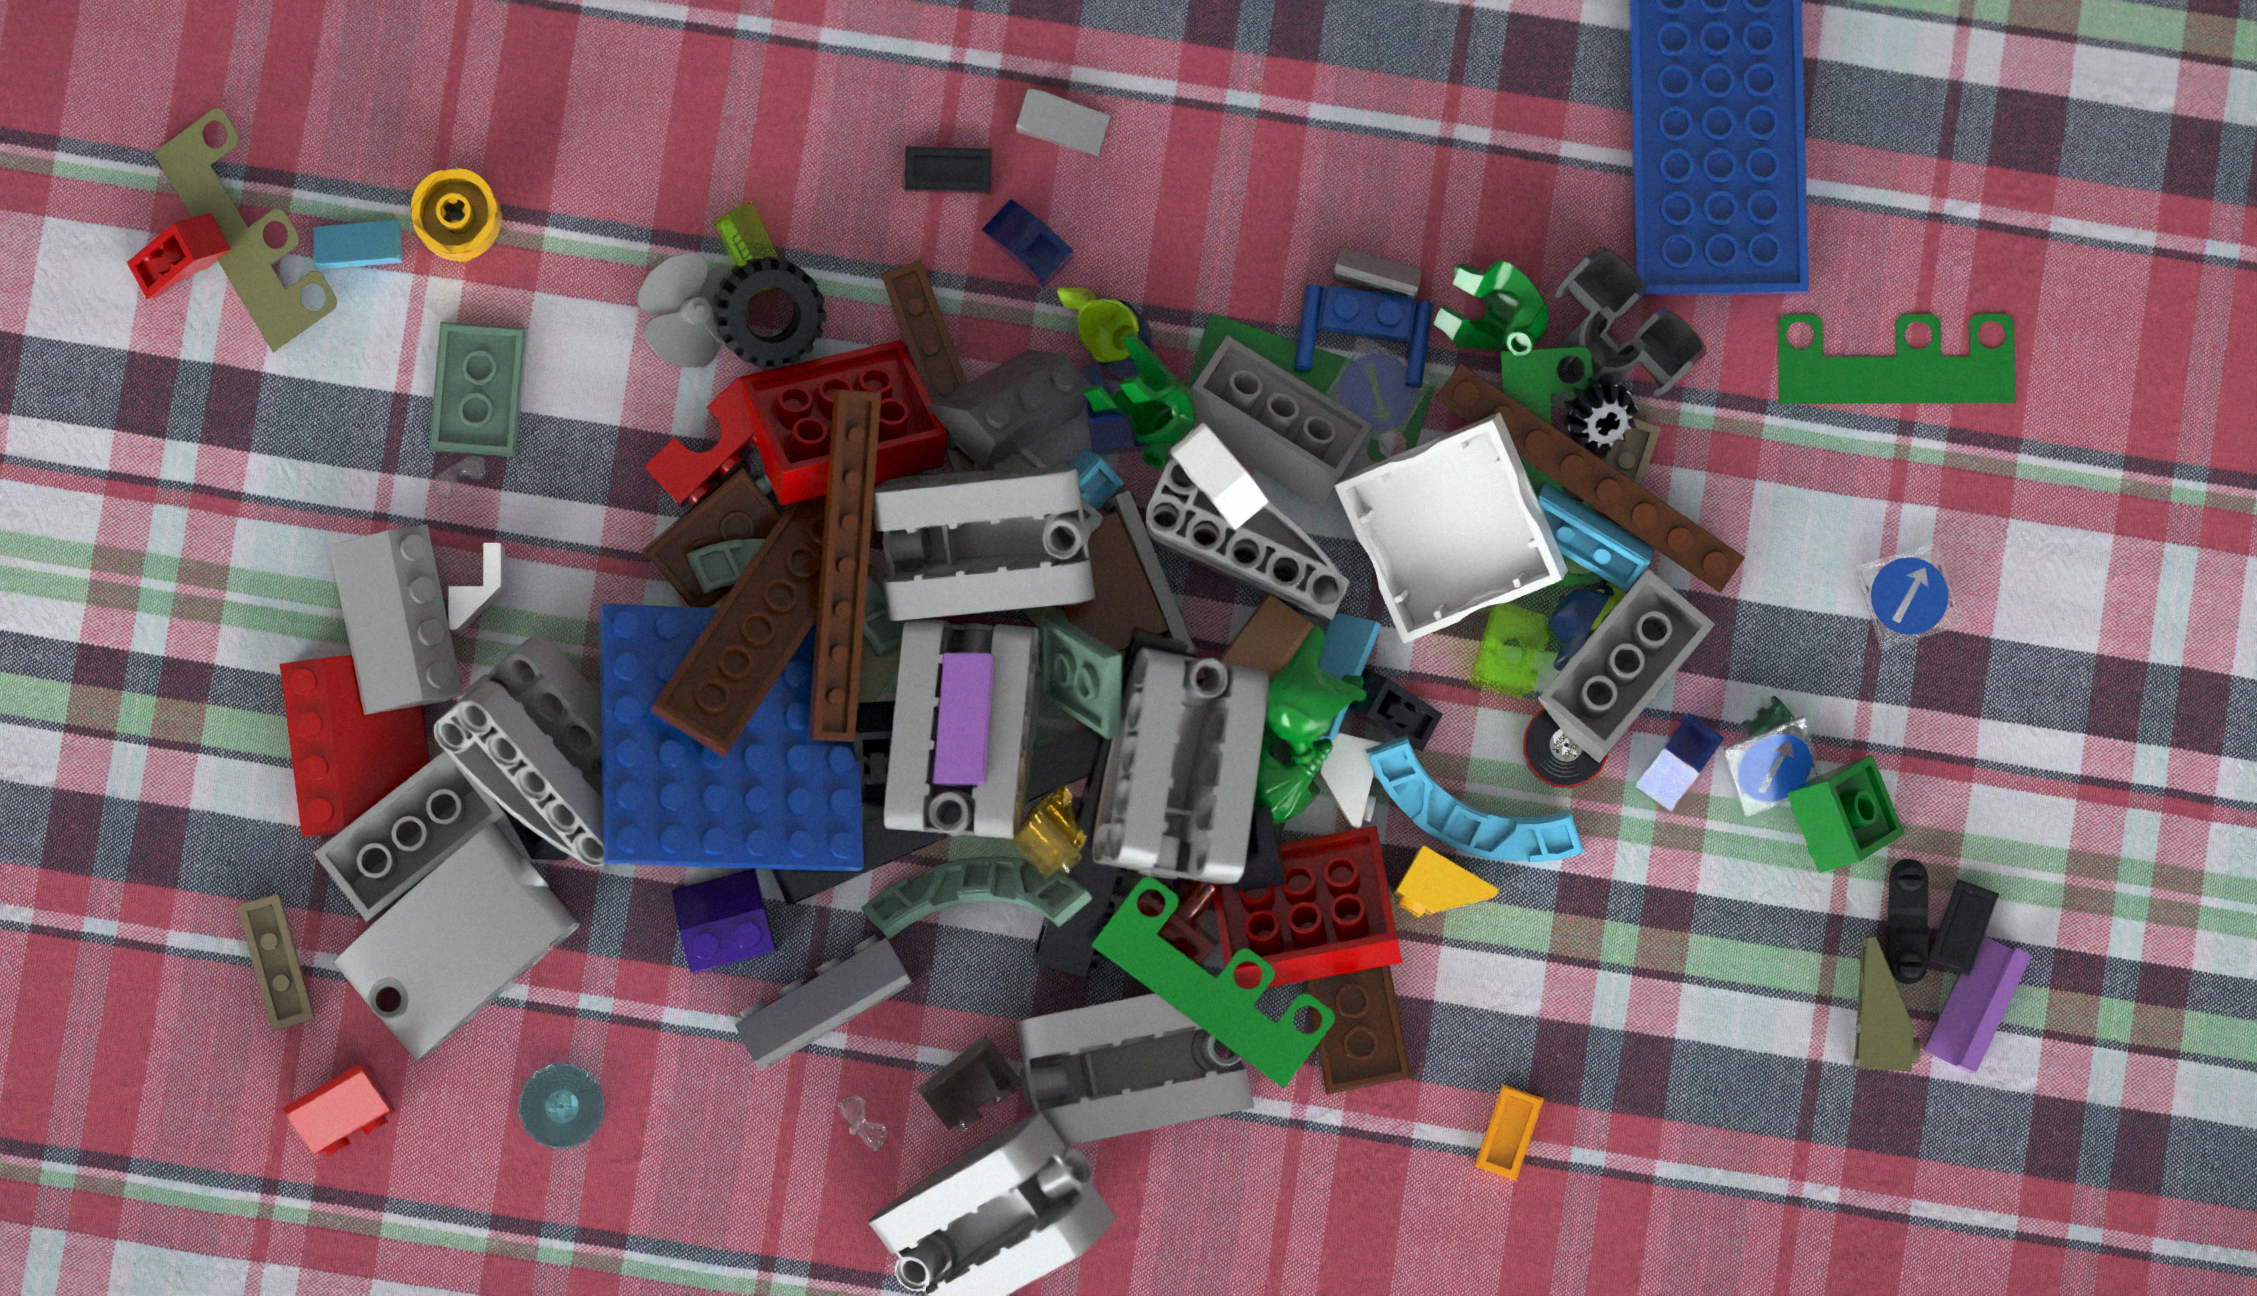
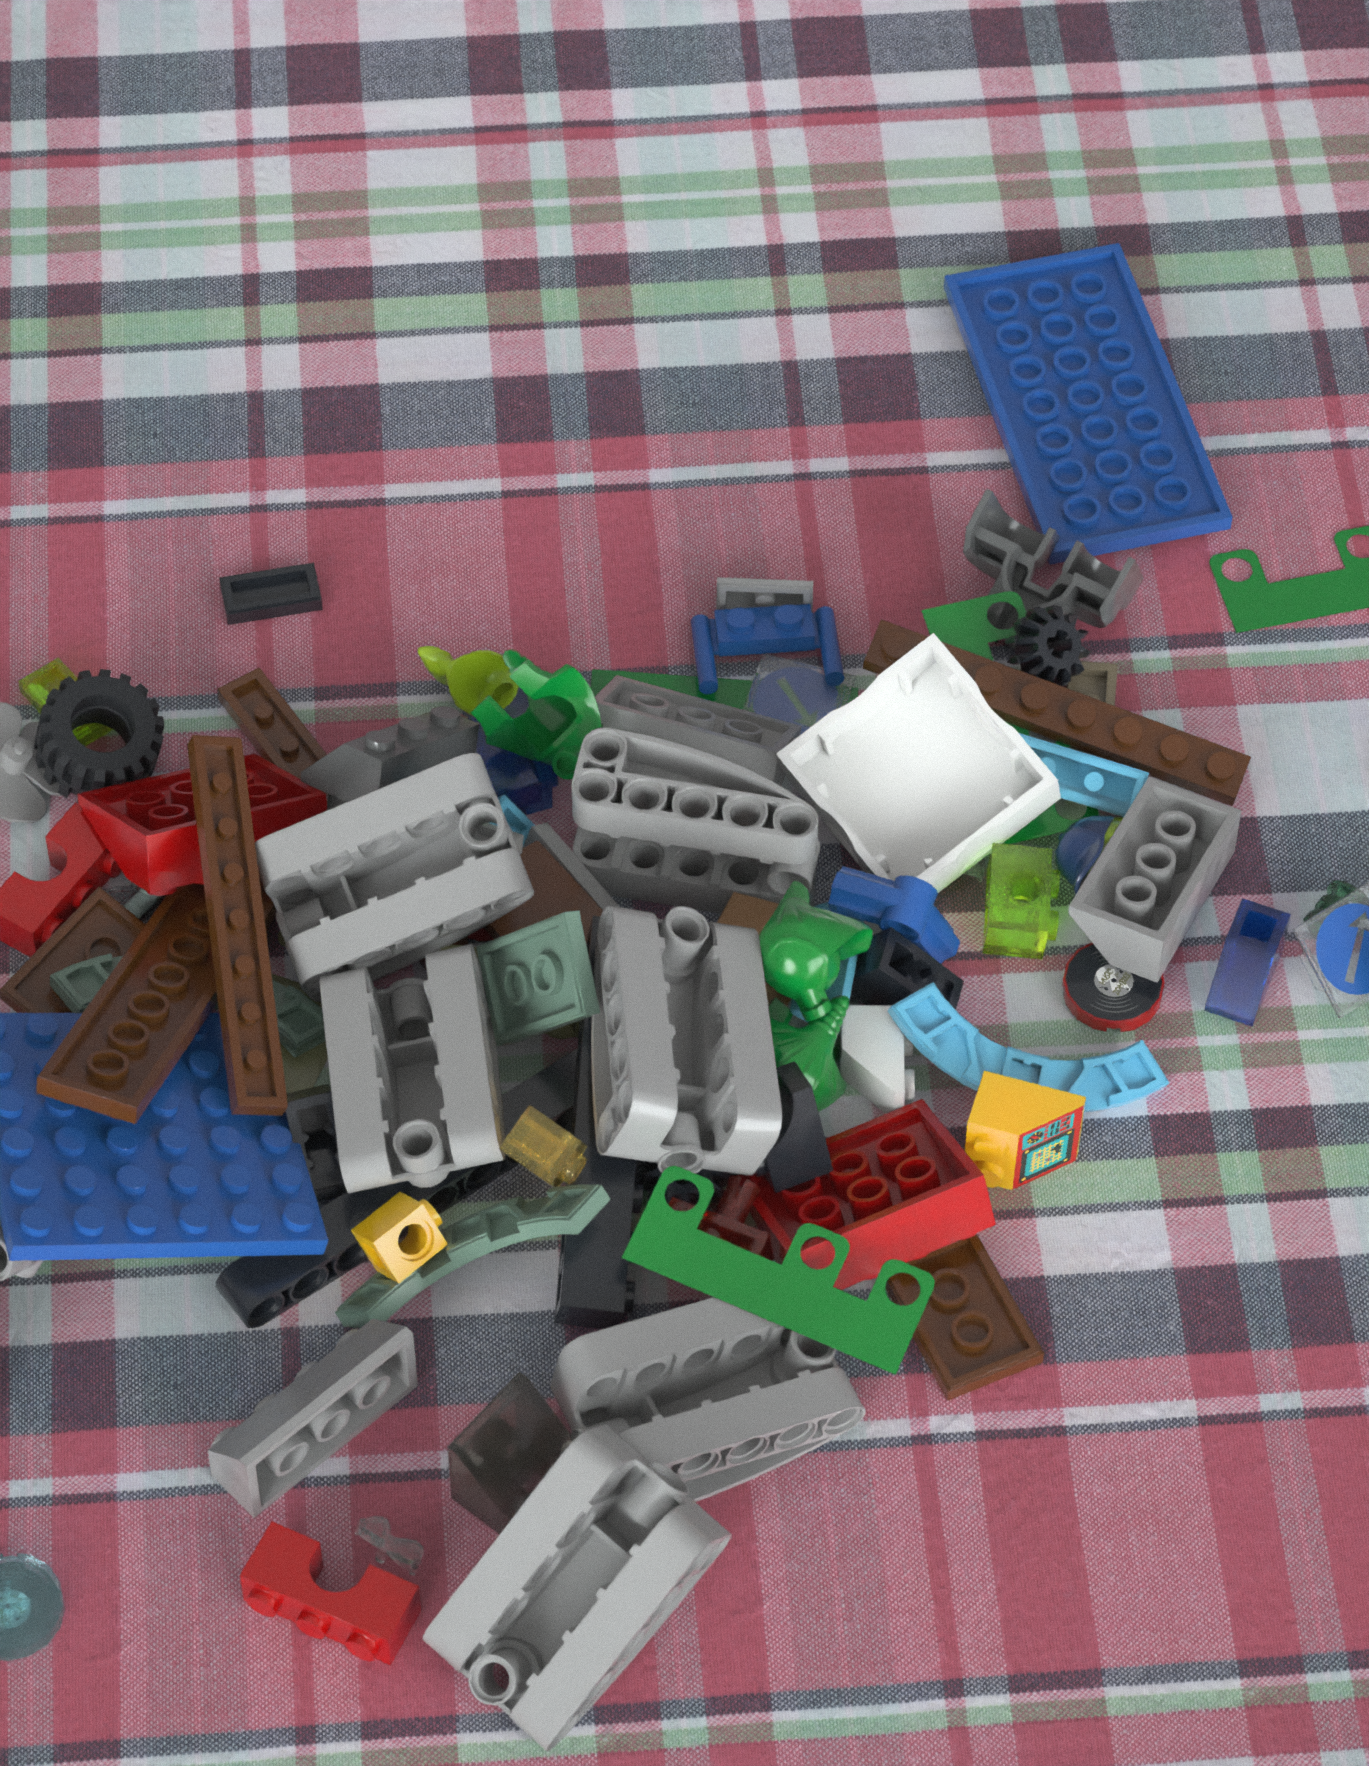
camera: 10 degrees left, 30 degrees down
(723, 921) = (175, 1363): dark purple slope -> none
(774, 1140) = (367, 1618): none -> red arch
(923, 868) = (380, 1234): none -> yellow brick
(964, 719) = (412, 1047): medium lavender panel -> none
(1028, 242) = (379, 630): clear blue slope -> none
(1062, 122) = (383, 527): light grey slope -> none
(1219, 475) = (657, 727): white slope -> none
(1397, 655) = (898, 904): none -> blue piece
(1509, 1132) = (1178, 1391): light orange tile -> none
(1514, 311) = (921, 582): green piece -> none

